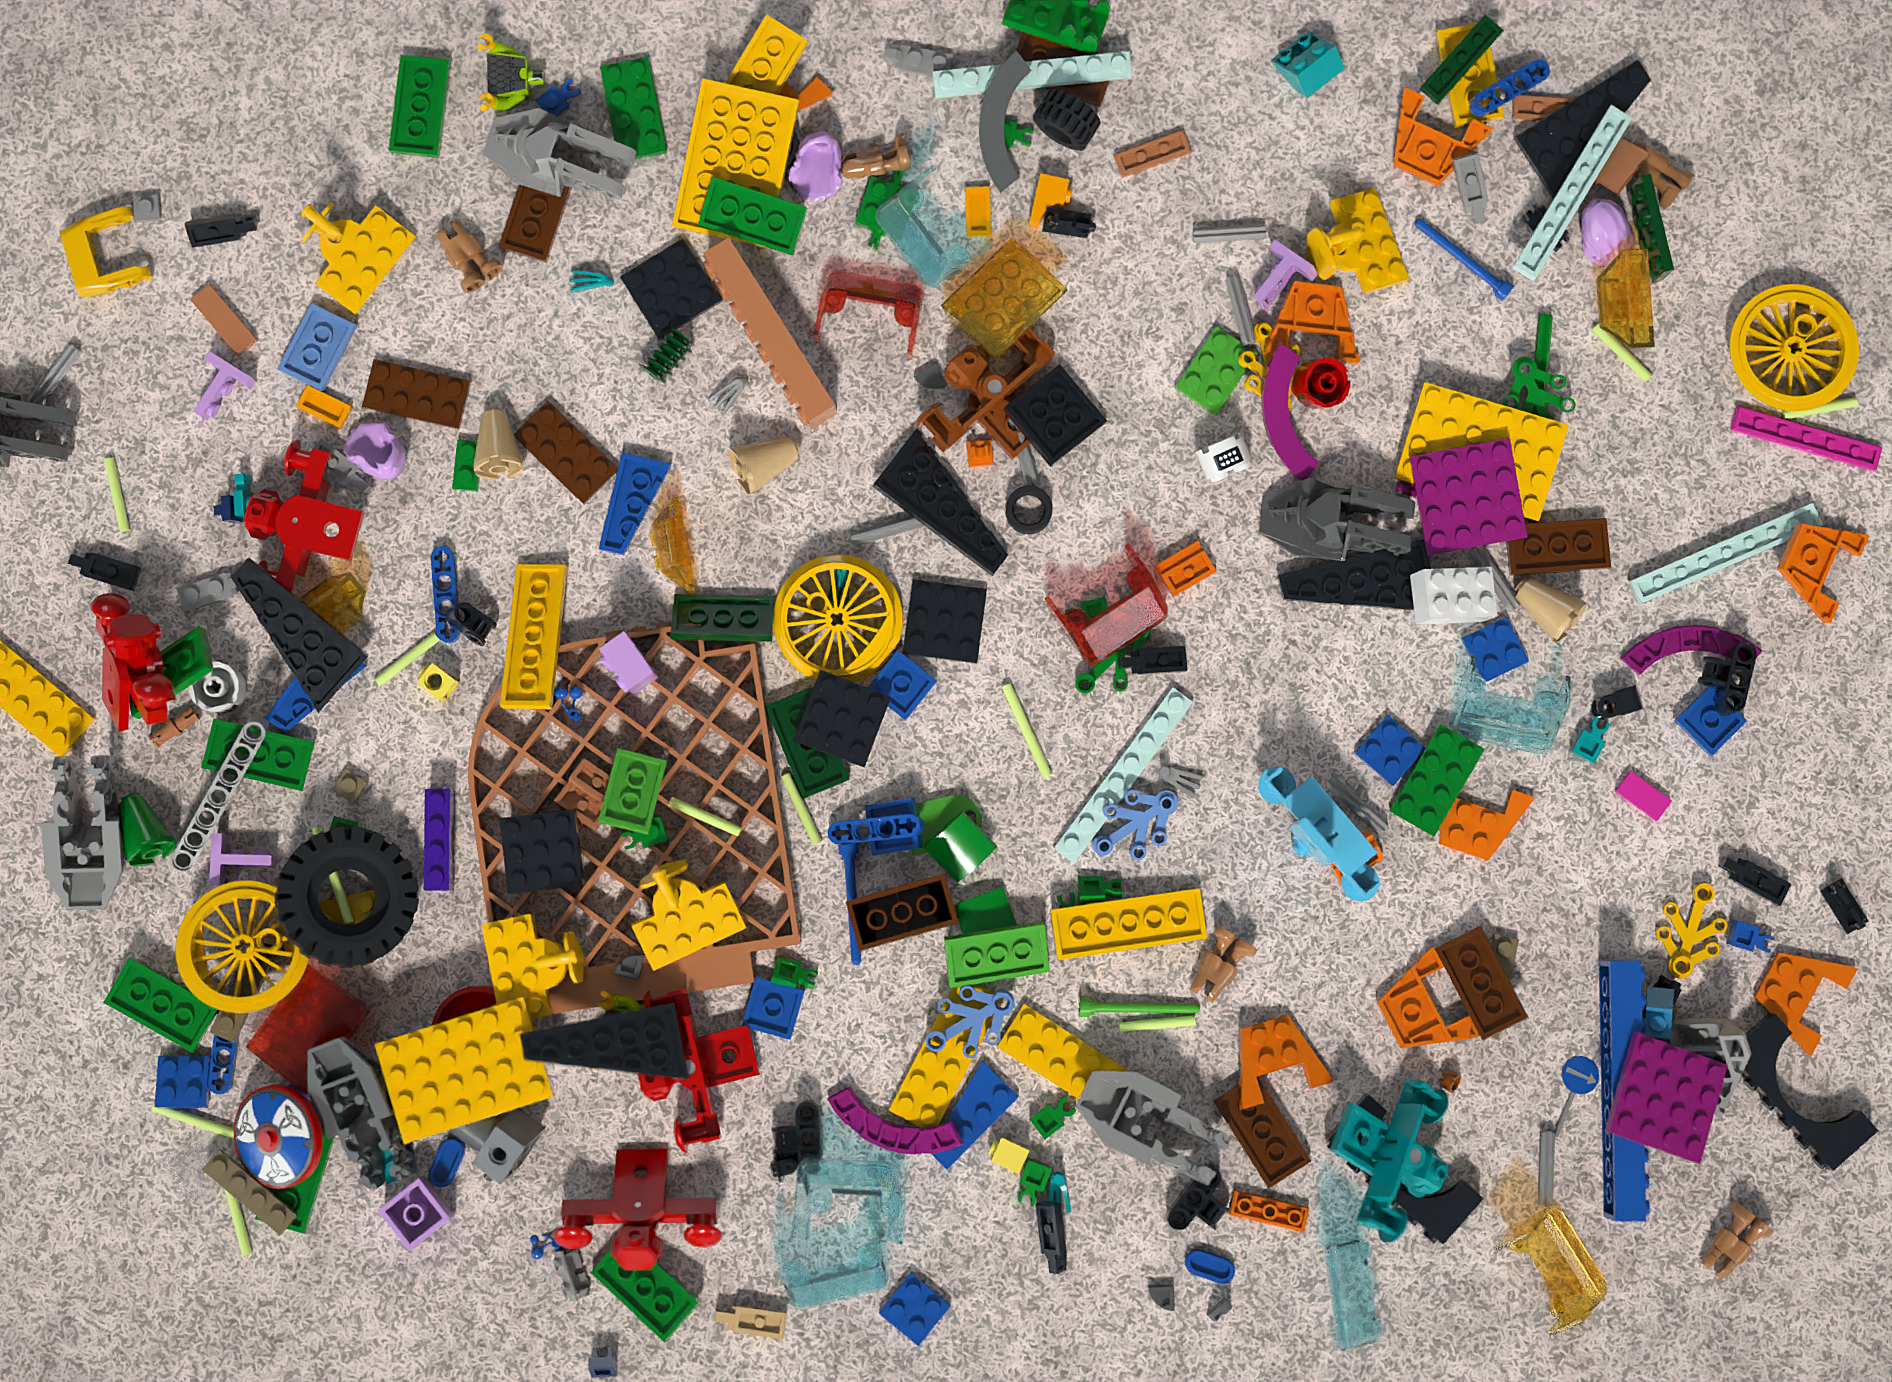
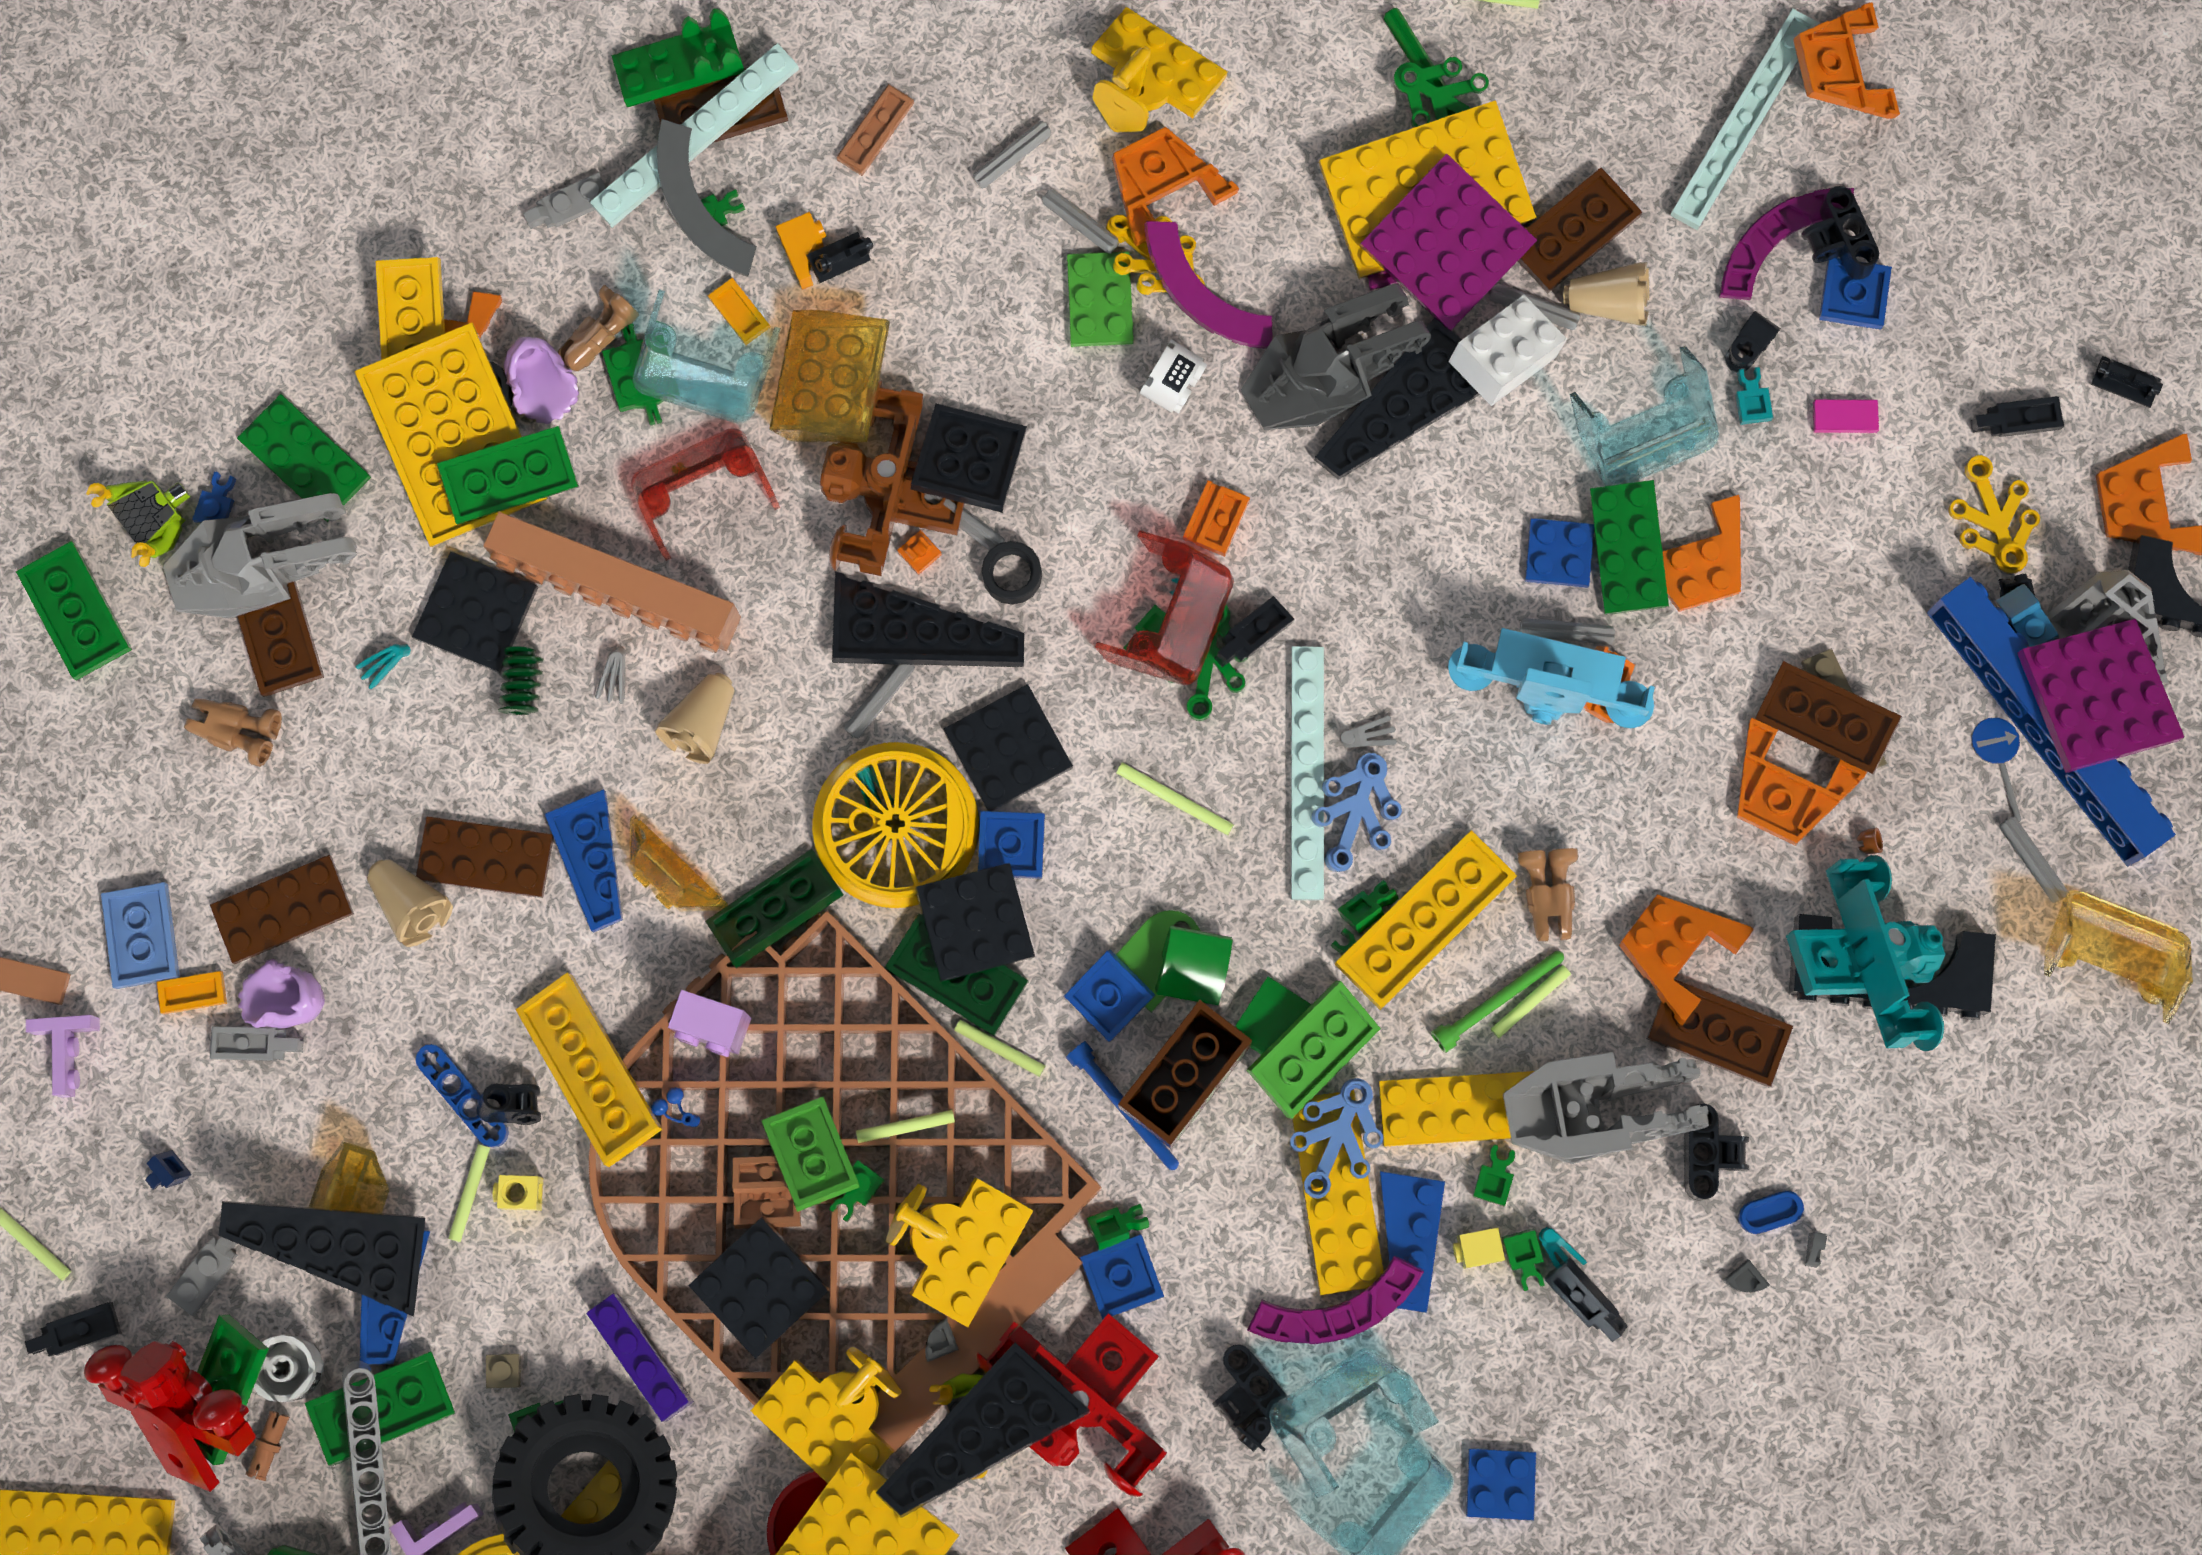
camera: 30 degrees left, 5 degrees down
(242, 494) = (175, 1151): teal plate -> none
(302, 518) = (252, 1120): red piece -> none
(338, 890) = (571, 1490): yellowish green bar -> none
(361, 254) = (121, 807): yellow plate -> none
(464, 474) = (392, 954): green plate -> none
(875, 827) = (1094, 1012): blue beam -> none
(931, 378) = (813, 511): dark grey tile -> none
(1066, 119) = (763, 153): black tyre -> none
(1253, 1208) = (1770, 1117): orange tile -> none
(1281, 274) = (1095, 154): lavender bracket -> none
(1318, 372) = (1216, 234): red brick -> none
(1351, 1291) = (1936, 1127): clear light blue windscreen -> none
(1495, 649) = (1589, 373): blue plate -> none
(1500, 287) = (1325, 16): blue piece -> none
(1746, 937) = (2054, 482): blue plate -> none

